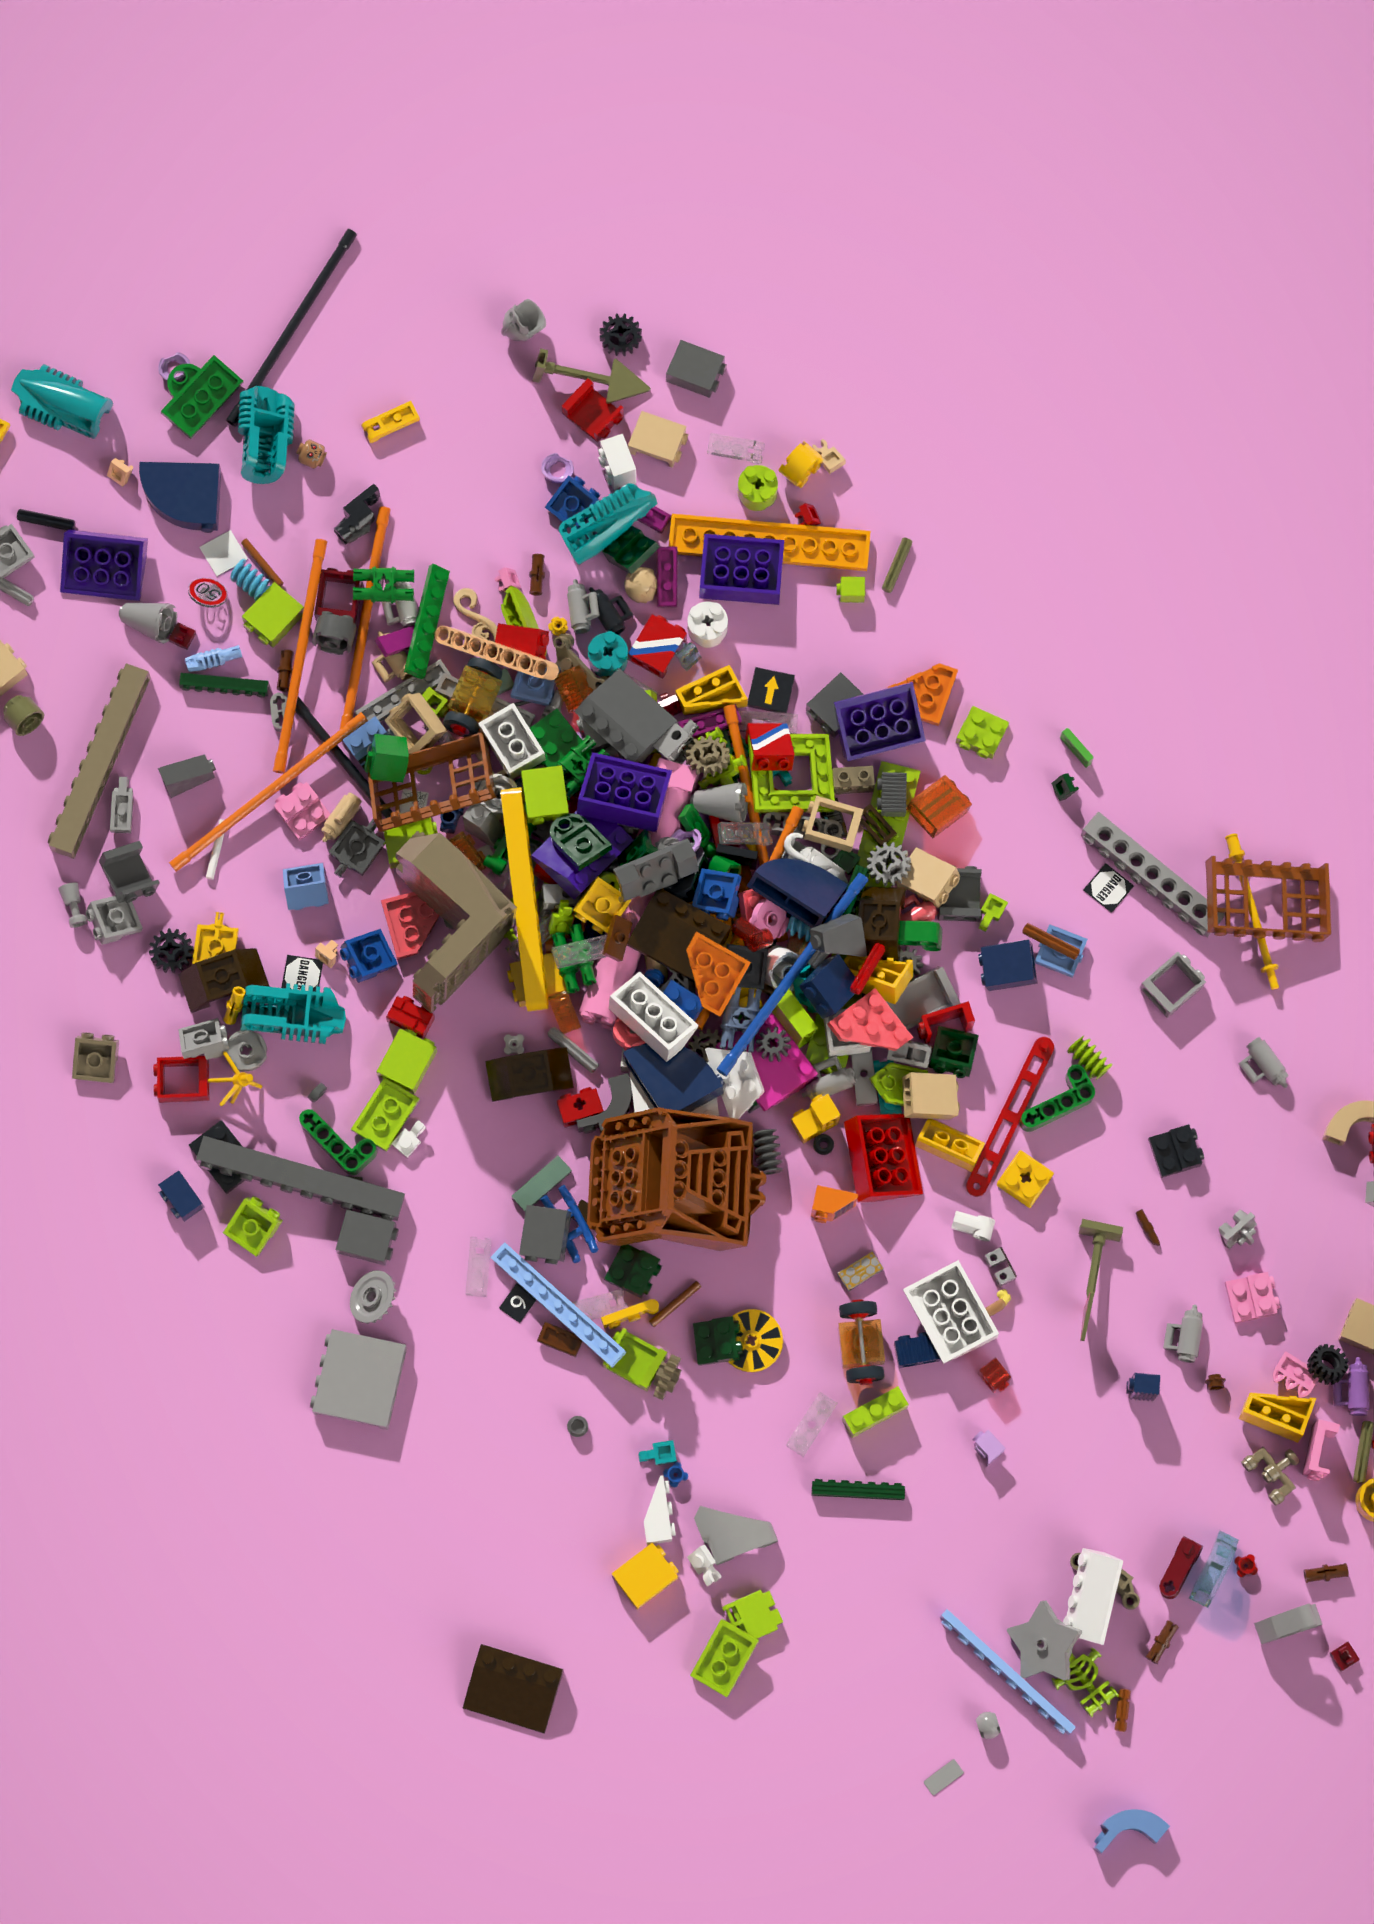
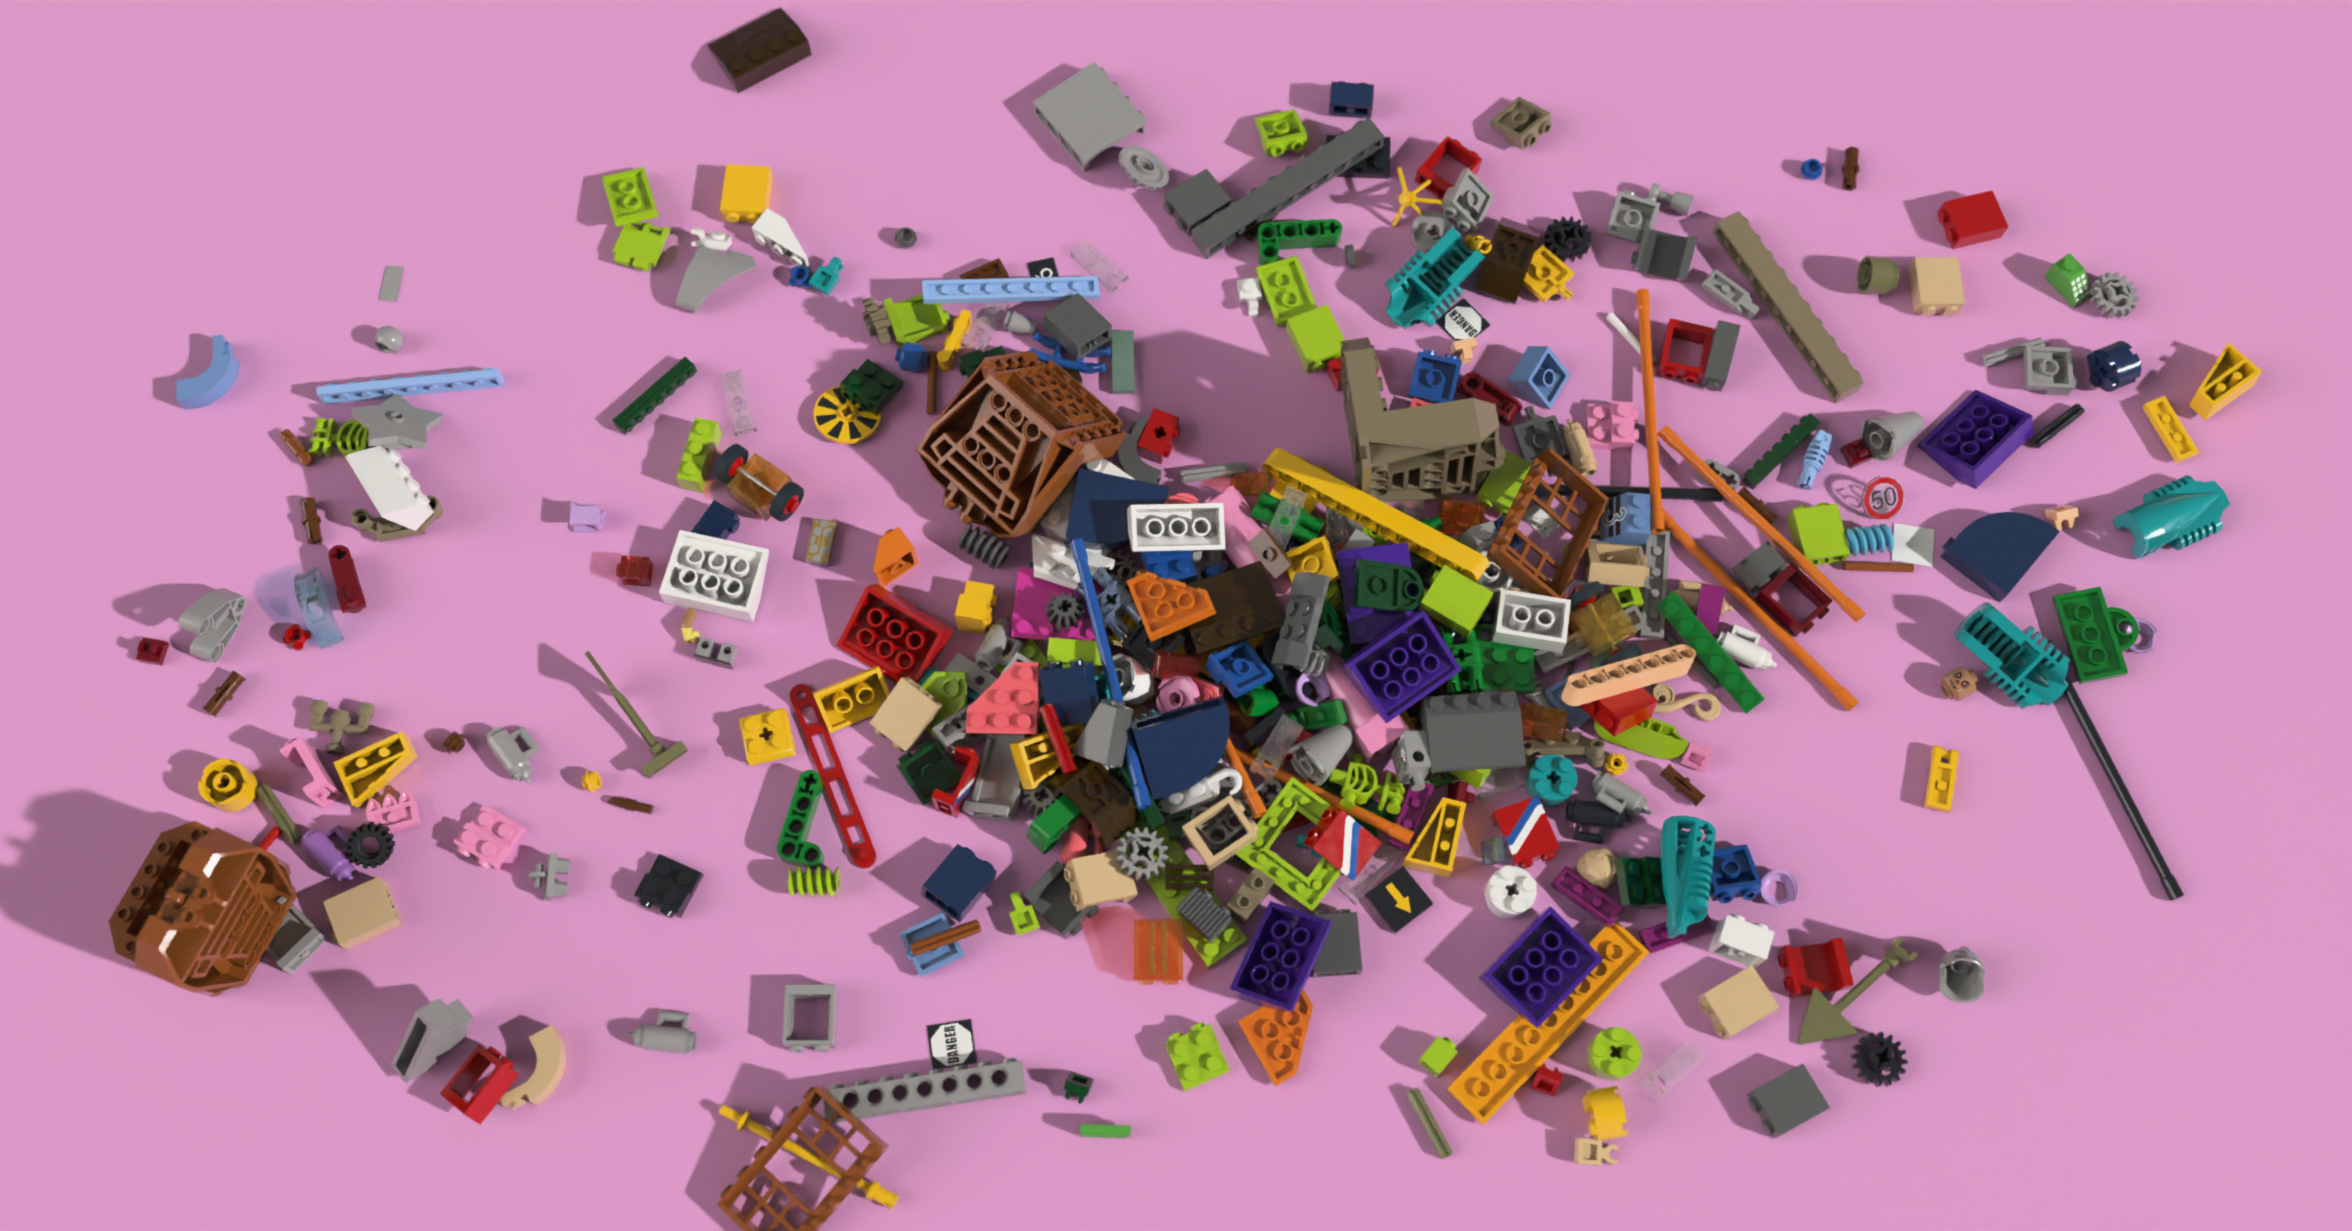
camera: 130 degrees right, 5 degrees down
(206, 818) = (1687, 332): none -> red window
(352, 907) = (1490, 393): none -> dark red piece
(358, 516) = (1863, 676): black plate -> none
(388, 758) = (1599, 510): green plate -> none
(390, 593) = (1785, 641): green pin -> none
(437, 646) = (1696, 664): none -> dark grey bar
(510, 1049) = (1260, 436): white plate -> none
(529, 1074) = (1217, 417): dark brown slope -> none
(562, 920) = (1333, 535): lime plate -> none
(577, 1283) = (1018, 323): none -> light grey cone
(669, 1332) = (912, 357): none -> blue head
(707, 756) = (1372, 761): dark tan gear -> none
(823, 1138) = (949, 594): black plate -> none
(979, 1227) = (764, 664): white piece -> none
(1143, 1386) = (505, 673): dark blue brick -> none
(1157, 1266) = (591, 781): none -> yellow plate

